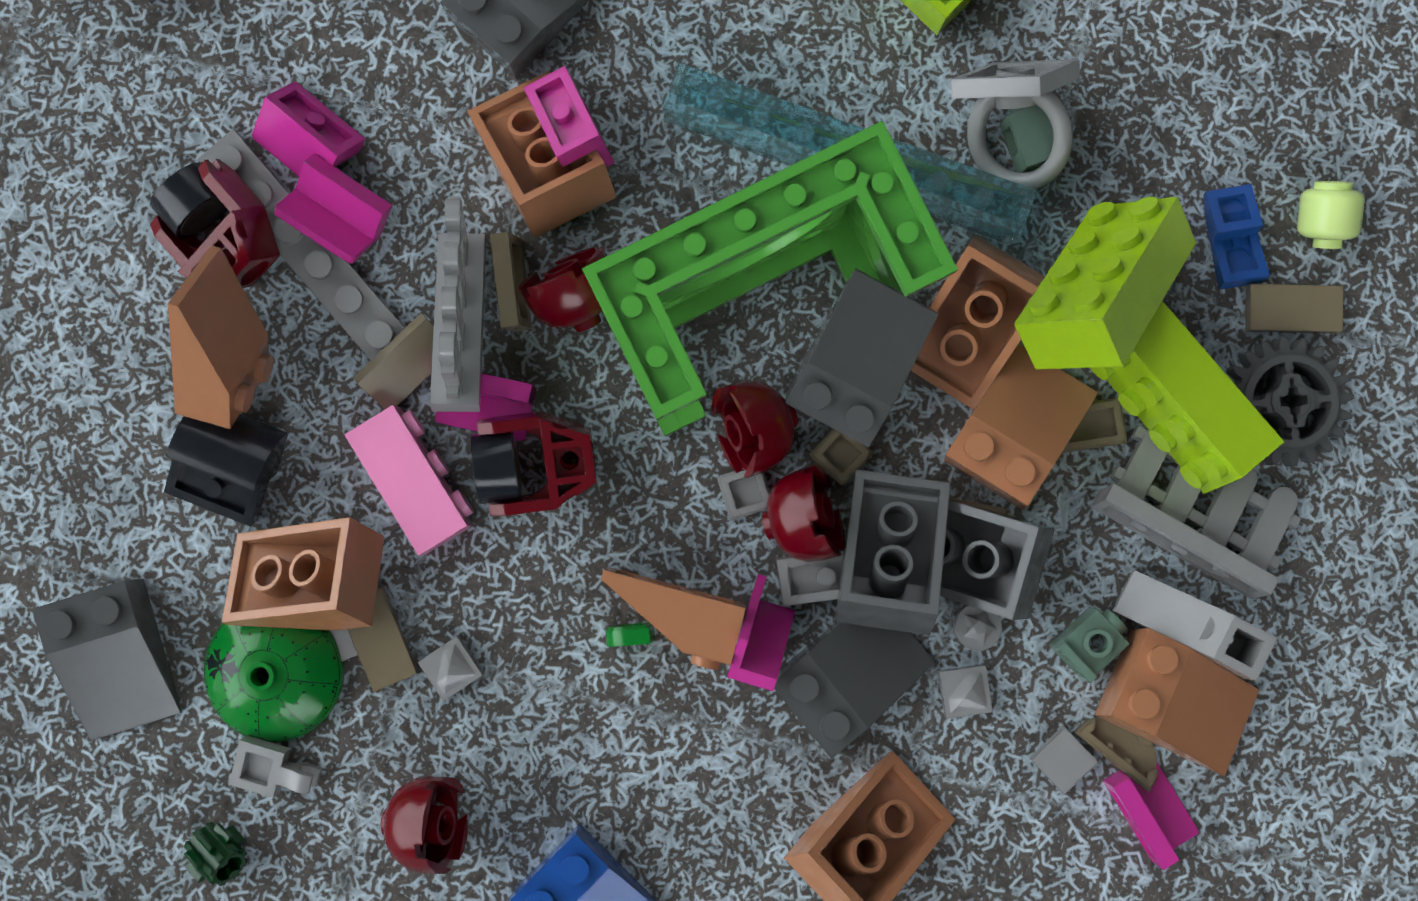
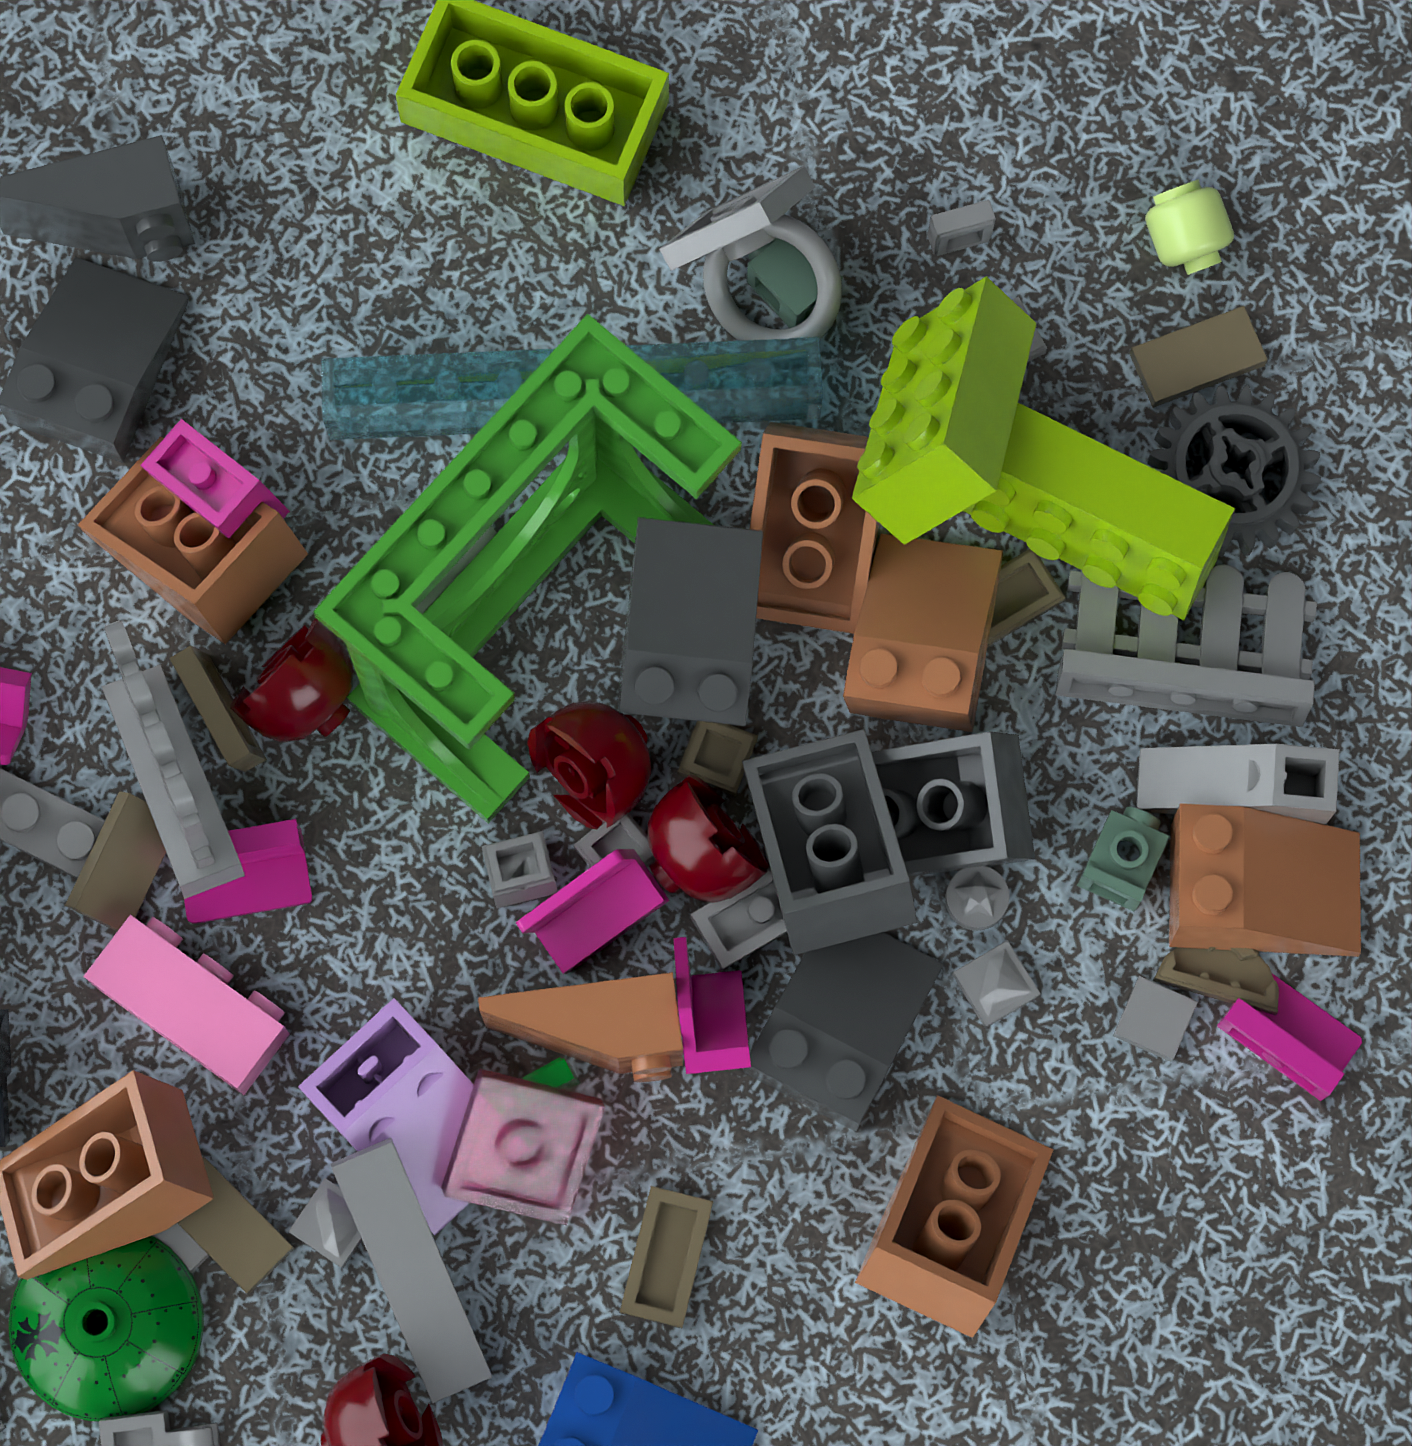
camera: 20 degrees left, 10 degrees down
(487, 726) = (411, 1270): none -> light grey tile
(498, 465) = (296, 942): dark red piece -> none
(531, 621) = (398, 1087): none -> lavender slope
(596, 674) = (522, 1147): none -> clear pink tile
(664, 784) = (666, 1257): none -> dark tan tile
(672, 478) = (519, 869): none -> light grey tile
(713, 530) = (595, 909): none -> dark pink panel
(1168, 148) = (961, 227): none -> light grey tile
(1233, 236) = (1088, 300): blue slope -> none

